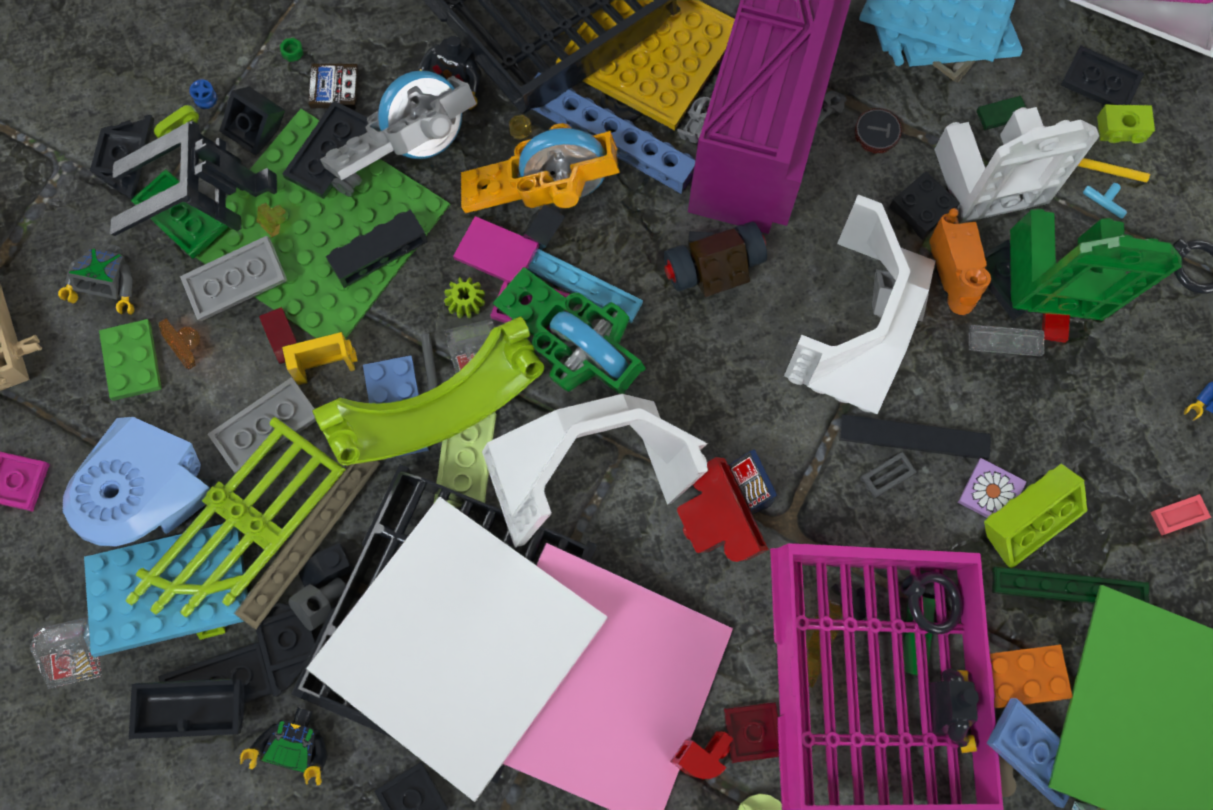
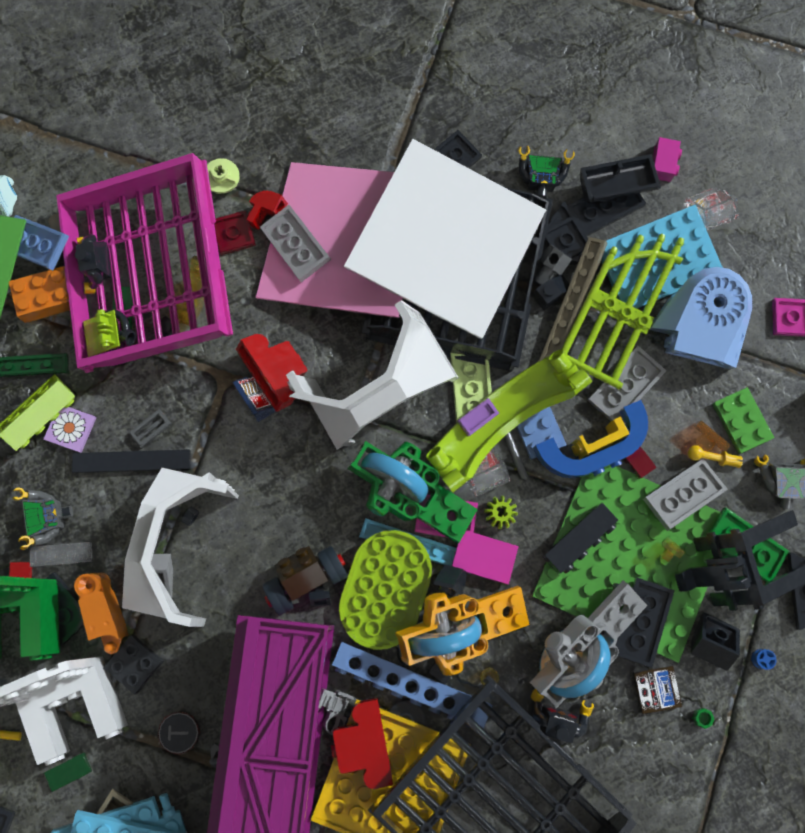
camera: 165 degrees right, 5 degrees up
(107, 739) = (665, 158): none -> dark pink brick
(175, 120) = (774, 628): lime plate -> none
(203, 325) = (696, 453): none -> yellow pin
(354, 326) = (552, 459): none -> blue arch
(466, 411) = (478, 417): none -> medium lavender tile
(620, 235) = (385, 588): none -> lime plate
(668, 689) = (295, 243): none -> light grey plate
(674, 75) = (364, 745): none -> red brick
(946, 596) = (101, 333): none -> lime hinge
(1028, 383) = (42, 516): none -> torso

